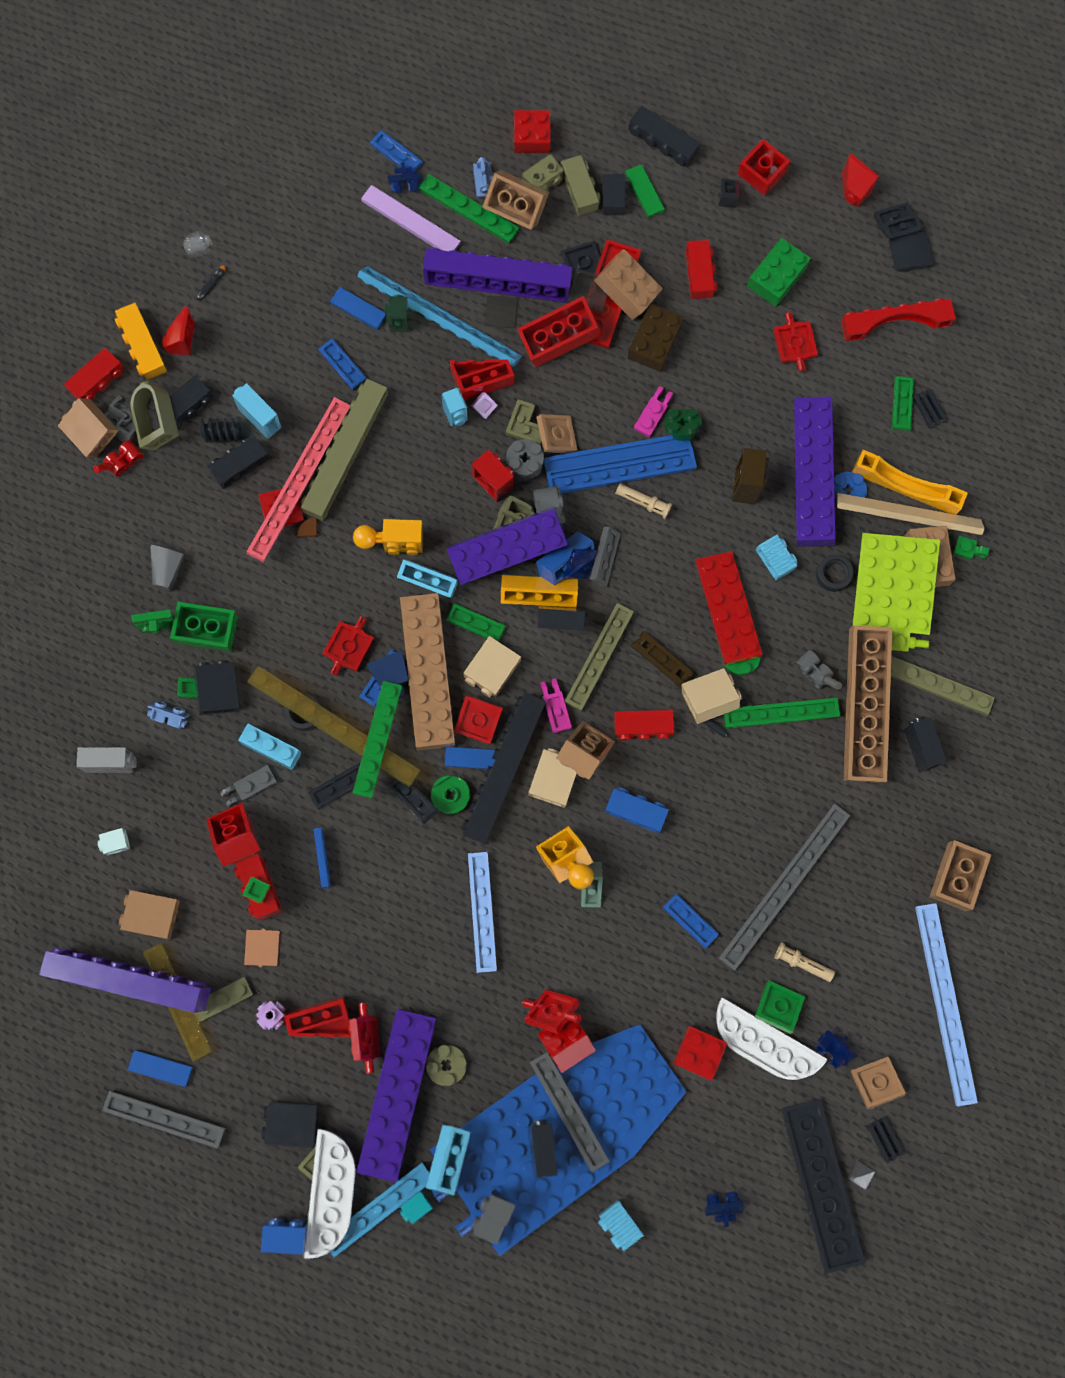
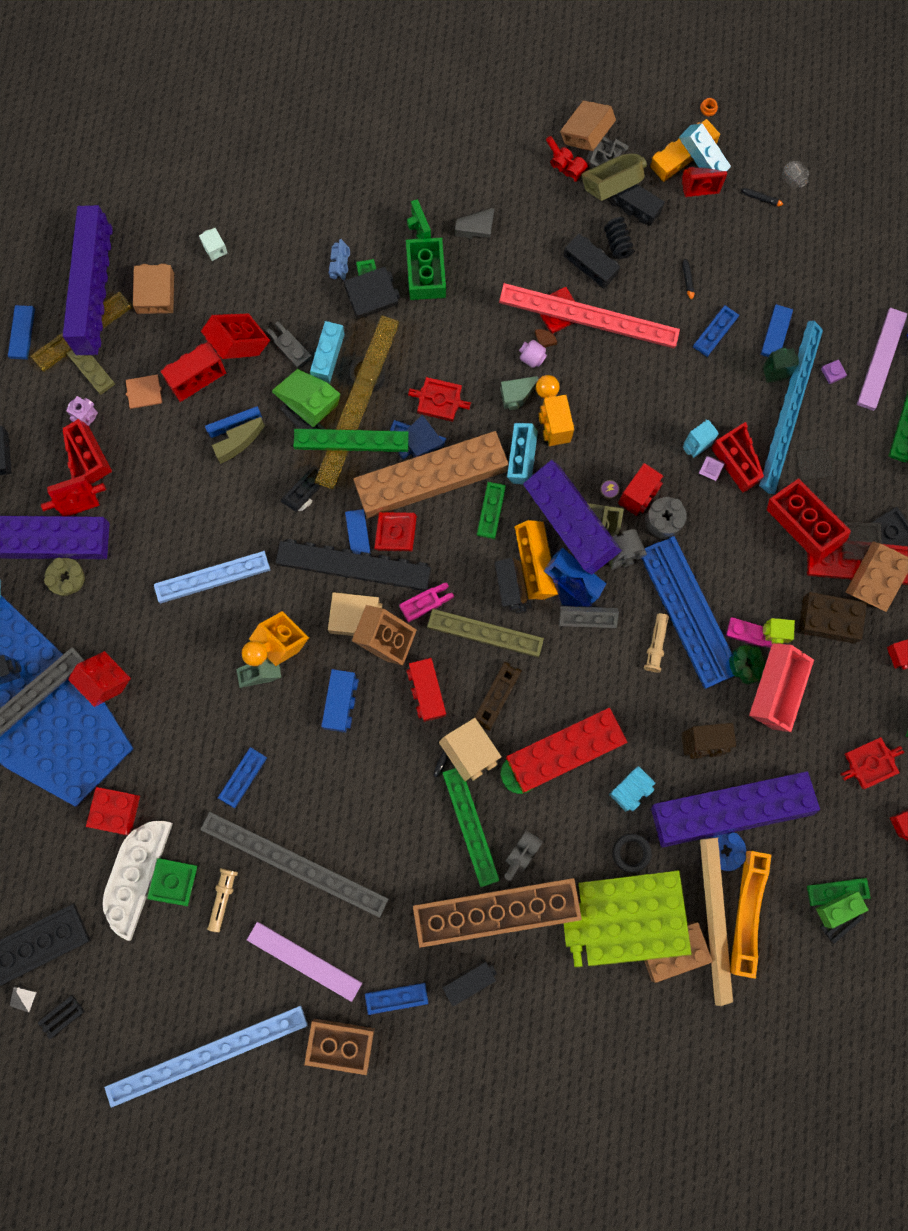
camera: 80 degrees right, 0 degrees up
(94, 376) = (639, 120): red brick -> none
(95, 301) = (709, 102): none -> orange plate
(106, 760) = (282, 216): light grey brick -> none
(151, 322) = (703, 148): none -> brick
(256, 410) = (644, 262): medium azure brick -> none
(256, 890) = (184, 363): green plate -> none
(280, 375) = (688, 279): none -> black piece
(312, 777) = (307, 396): none -> bright green slope
(323, 543) = (532, 353): none -> lavender head
(342, 858) = (238, 440): none -> olive slope
(344, 450) = (631, 351): olive brick -> none
(361, 569) = (517, 391): none -> sand green slope
(413, 268) = (834, 371): none -> medium lavender plate
(460, 799) = (318, 513): green plate -> none
(481, 506) = (609, 489): none -> tile
(491, 667) = (449, 533): tan brick -> none
(497, 275) = (850, 448): dark purple brick -> none
(520, 424) = (702, 506): olive plate -> none
(551, 1011) = (126, 659): red plate -> none
(556, 433) = (701, 542): medium nougat hinge -> none
(659, 387) = (779, 630): none -> lime brick
(712, 399) = (781, 687): none -> coral piece
(836, 1047) = (143, 949): clear blue hips -> none
(875, 895) = (304, 961): none -> lavender tile
(878, 1083) = (113, 997): medium nougat hinge -> none
(920, 403) = (842, 909): none -> bright green brick
(925, 817) = (396, 998): none -> blue tile
(941, 686) = (539, 988): olive plate -> none
(967, 548) = (696, 991): green plate -> none

